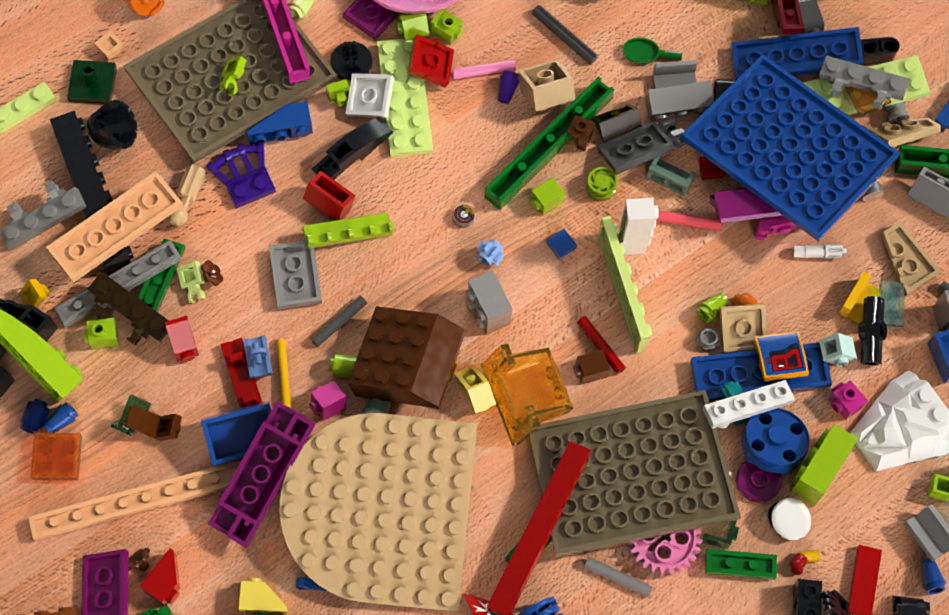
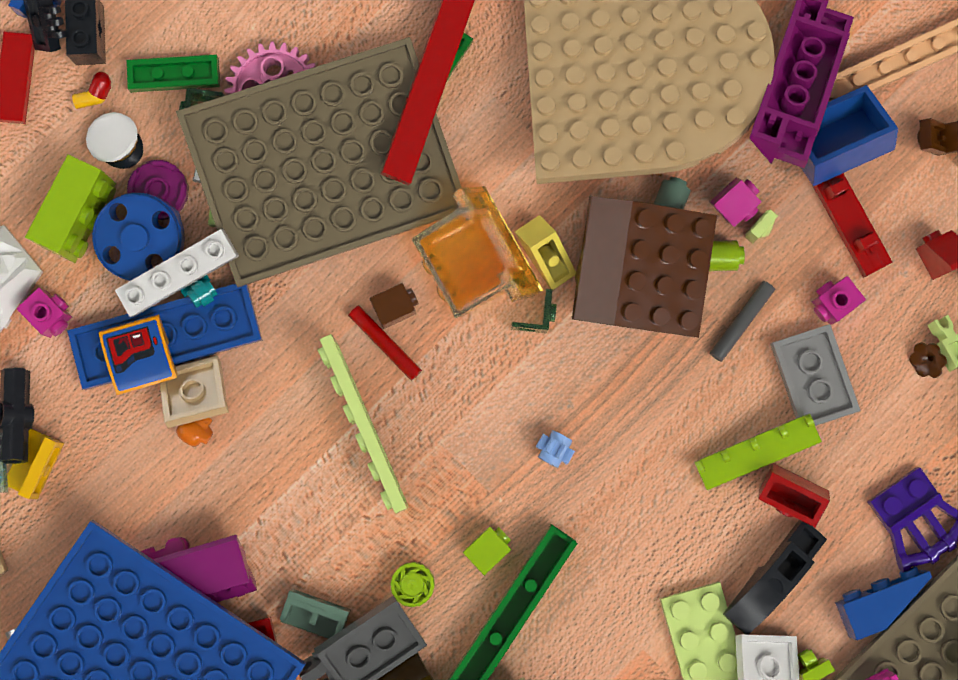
camera: 170 degrees right, 15 degrees up
(257, 357) = (840, 247): medium blue hips -> none
(268, 321) = (837, 300): none -> dark pink brick
(283, 372) = (795, 221): yellow piece -> none
(311, 382) = (762, 226): none -> yellowish green tile
(464, 215) = (599, 504): tile -> none
(488, 302) = (546, 367): light grey brick -> none
(488, 335) = (549, 315): none -> clear green bracket
(561, 244) = (457, 483): blue tile -> none
(582, 130) = (453, 659): reddish brown bracket -> none
(618, 577) = (325, 36): light grey piece -> none
(637, 225) = (353, 501): white brick -> none
(690, 220) = (286, 548): coral piece -> none
(708, 339) = (241, 373): light grey plate -> none
(709, 309) = (240, 417): lime cone -> none
(819, 251) = (118, 525): white piece -> none
(838, 349) = (60, 378): light aqua brick -> none

